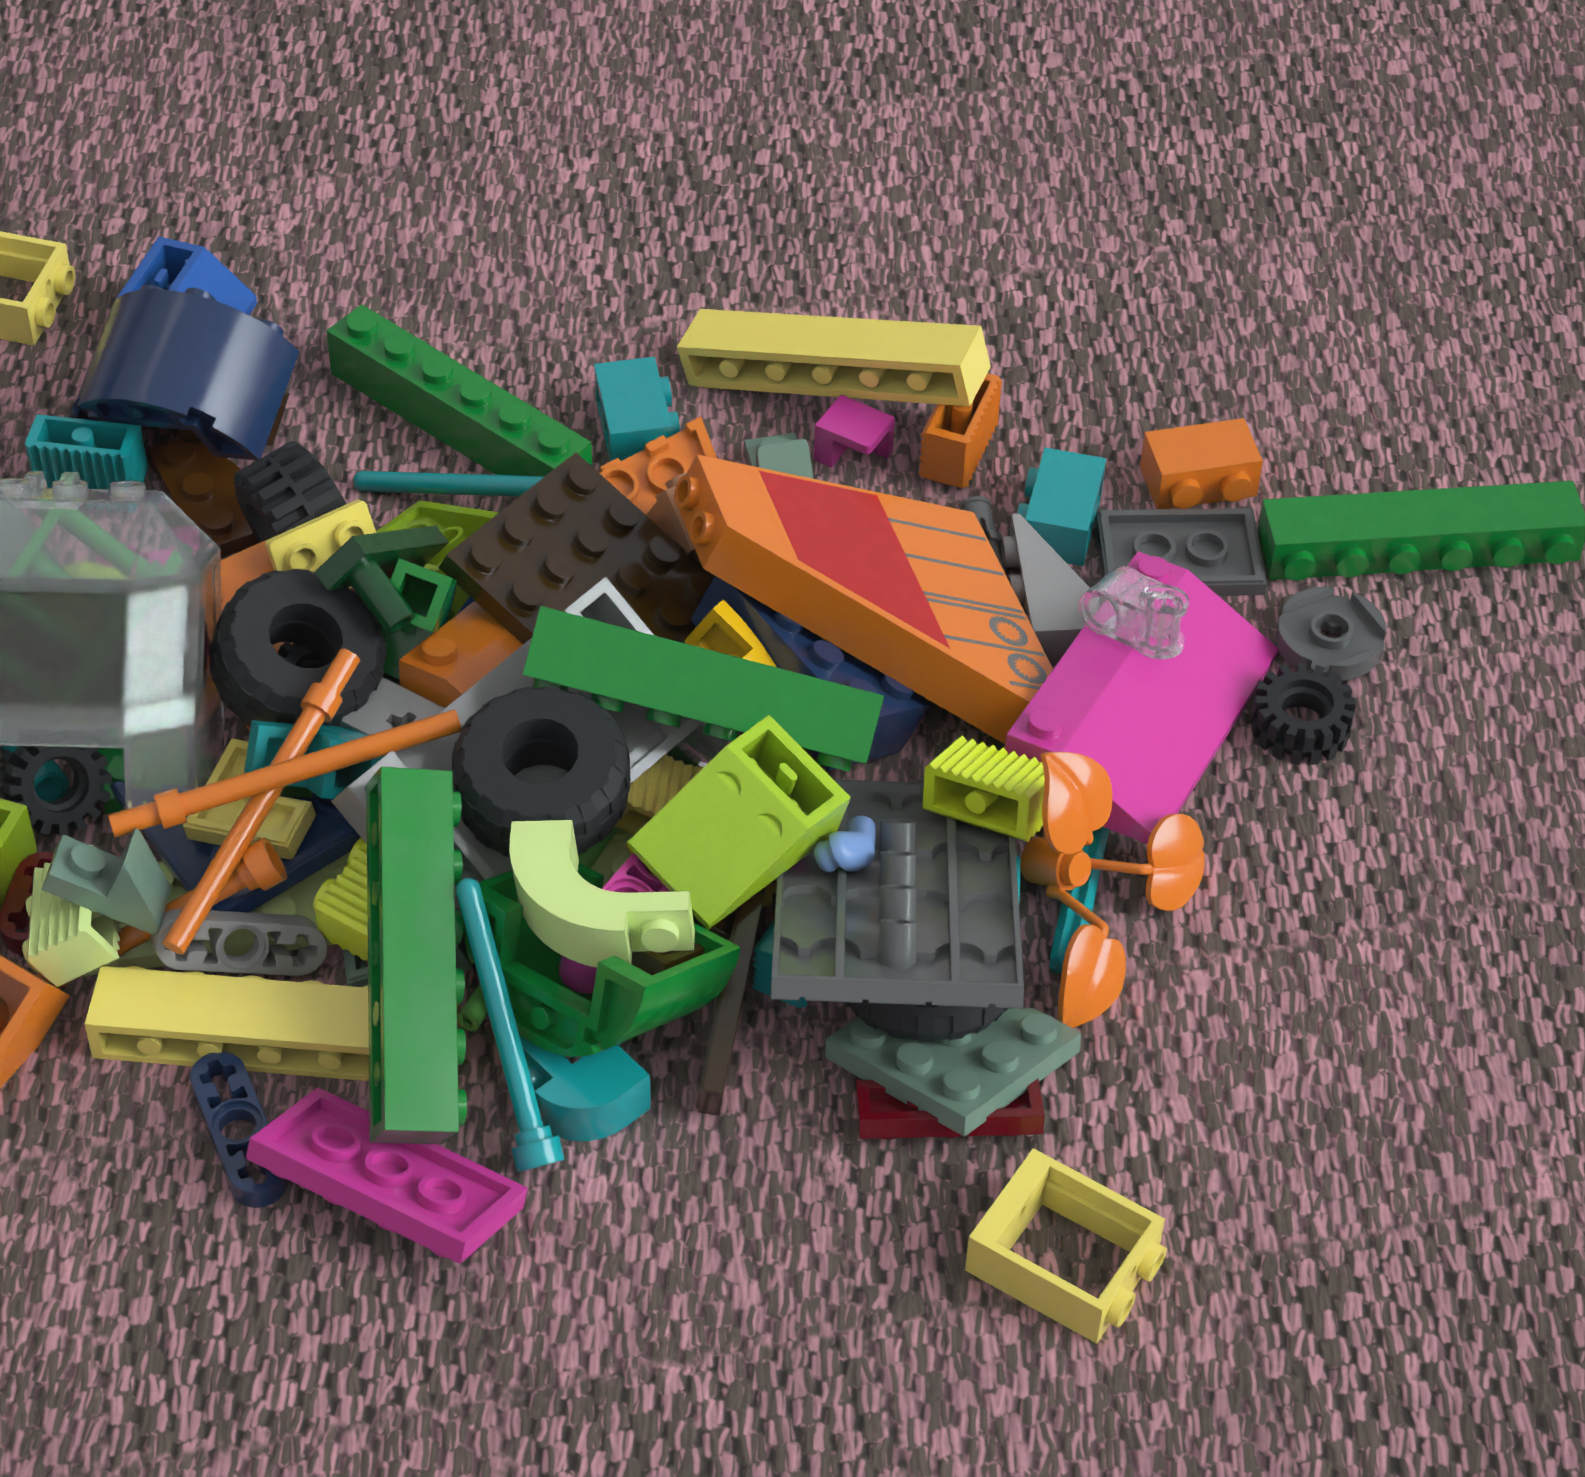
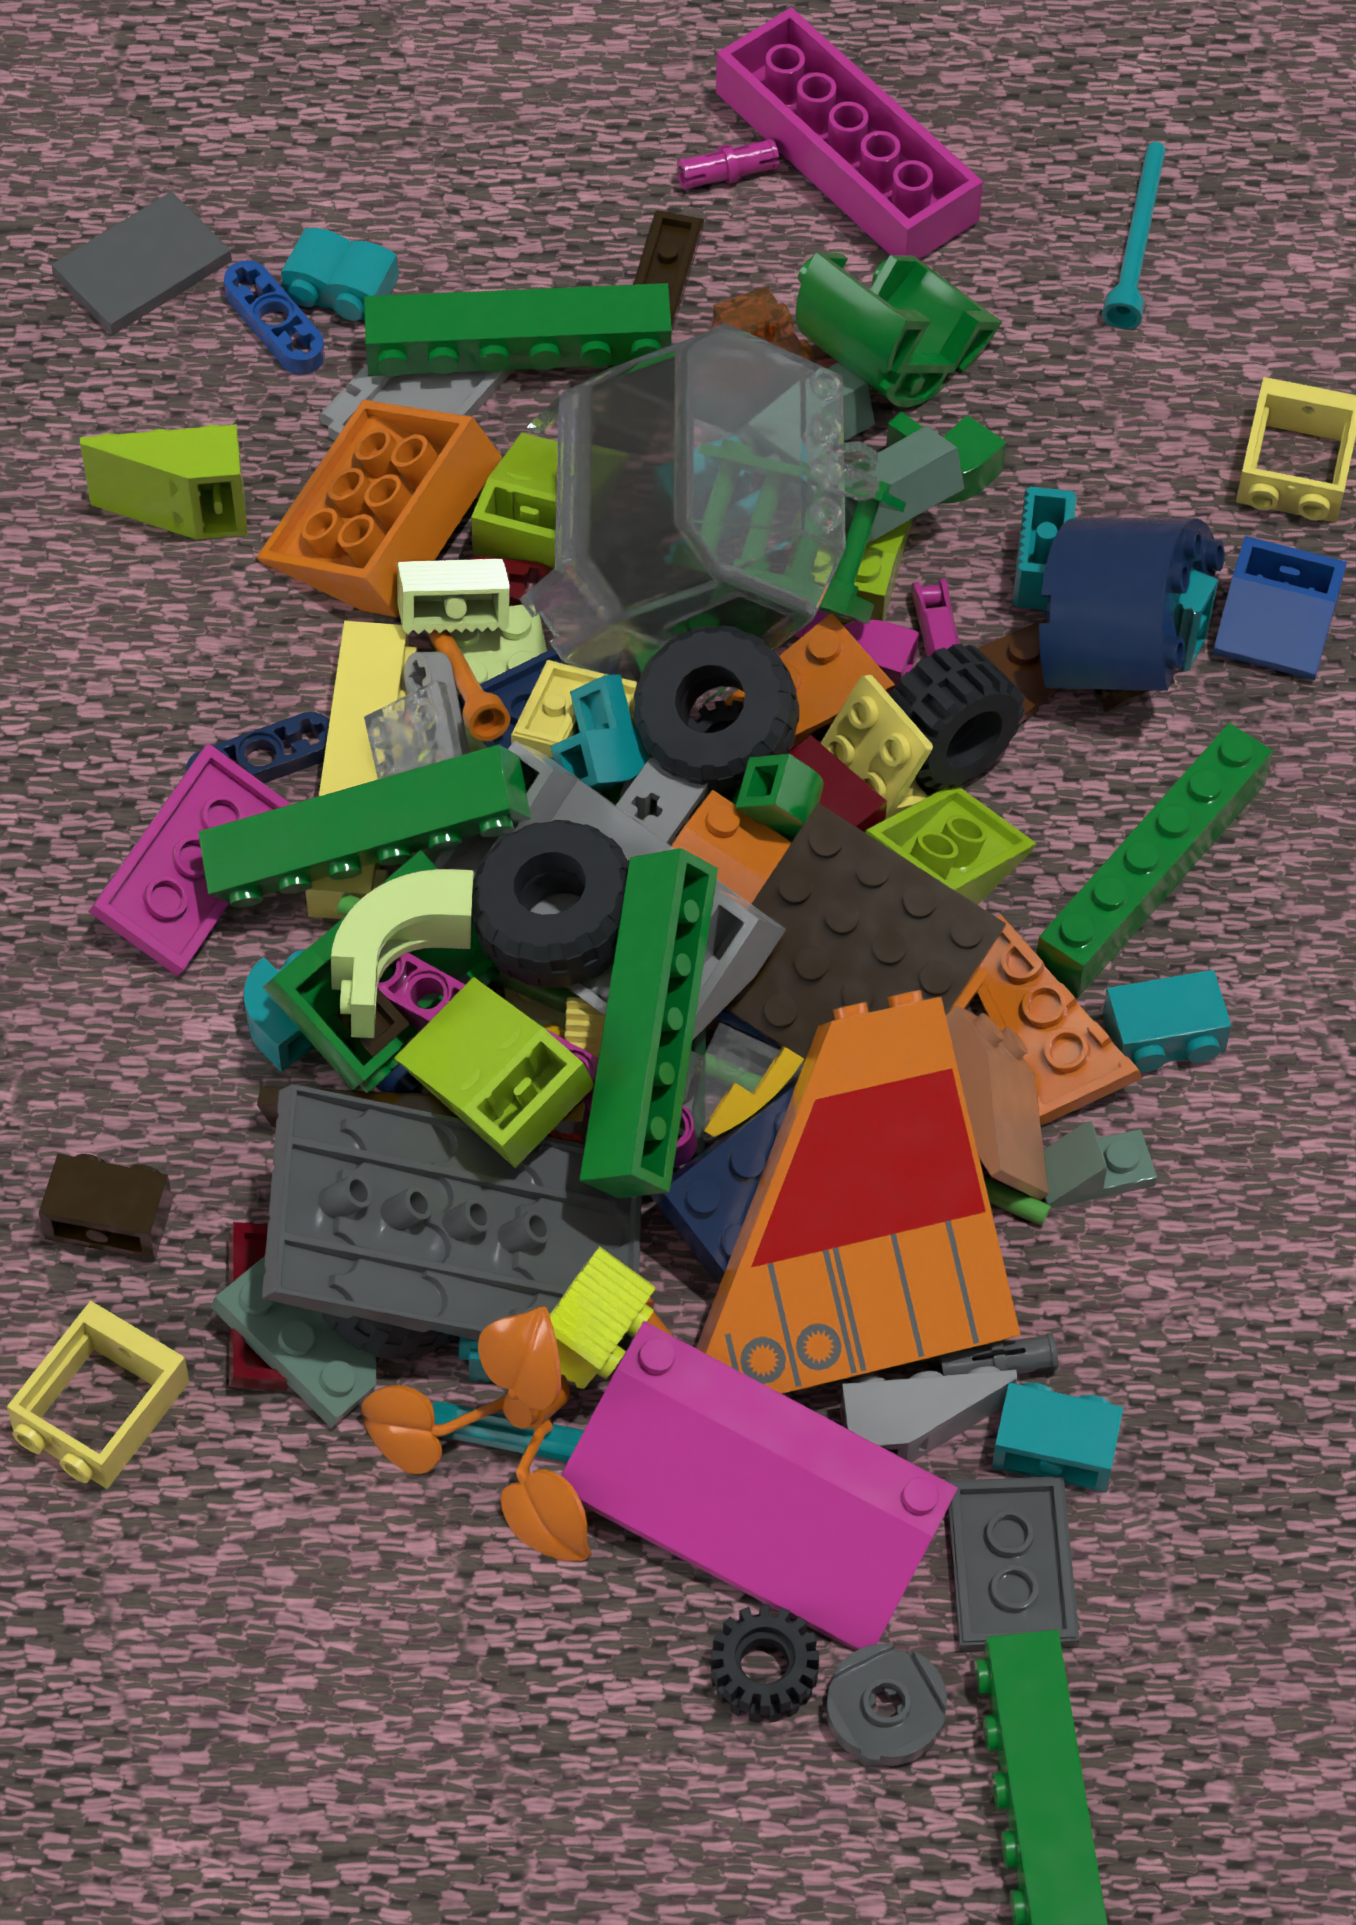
camera: 90 degrees right, 10 degrees up
(119, 887) = (457, 602): sand green slope -> none
(172, 808) = (512, 626): orange bar -> none
(300, 924) = (413, 731): none -> clear bracket
(318, 707) = (627, 718): orange bar -> none
(368, 566) = (779, 722): dark green piece -> none
(444, 483) = (1017, 949): teal piece -> none
(534, 1141) = (224, 973): teal piece -> none
(835, 356) = (1234, 1194): light yellow brick -> none
(838, 1240) = (106, 1205): none -> dark brown brick
(849, 848) = (491, 1180): medium blue arm -> none
(852, 426) = (1150, 1225): dark pink panel -> none
(958, 436) = (1159, 1329): orange brick -> none
(1133, 609) = (827, 1452): clear piece -> none
(1201, 464) = (1135, 1584): orange brick -> none

